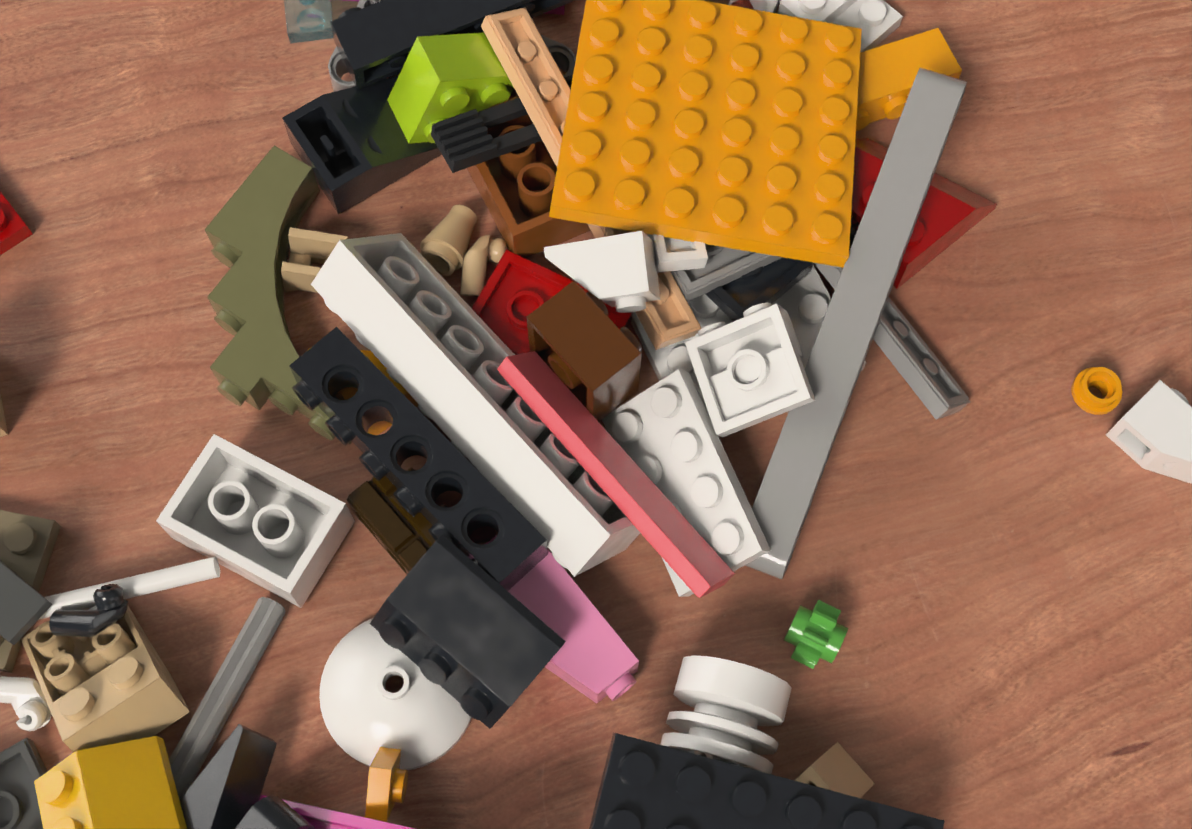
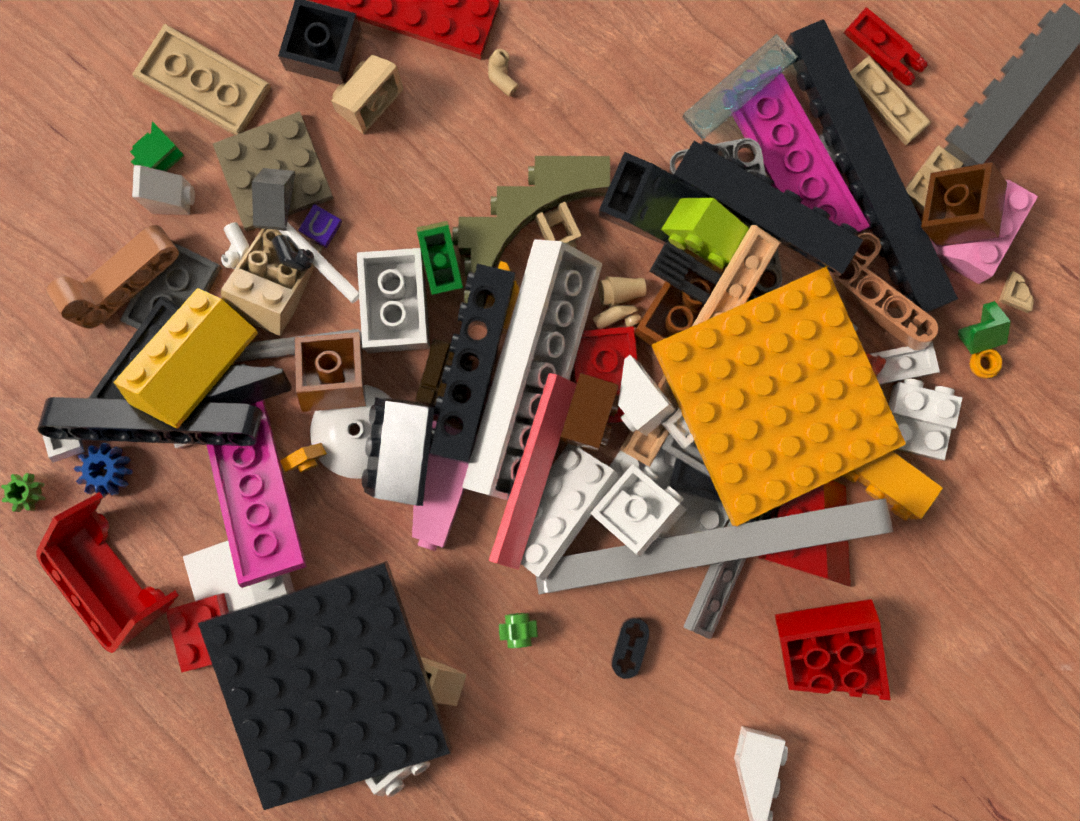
camera: 55 degrees right, 15 degrees up
(66, 219) = (498, 72): none -> tan arm
(83, 562) = (320, 226): none -> dark purple tile
(245, 419) = (439, 257): none -> green brick
(291, 664) = (329, 372): none -> dark orange brick
(728, 707) = (439, 610): white wheel -> none
(927, 504) = (638, 648): none -> black beam
(1069, 258) = (834, 649): none -> red wedge
(1105, 381) = (772, 711): light orange plate -> none

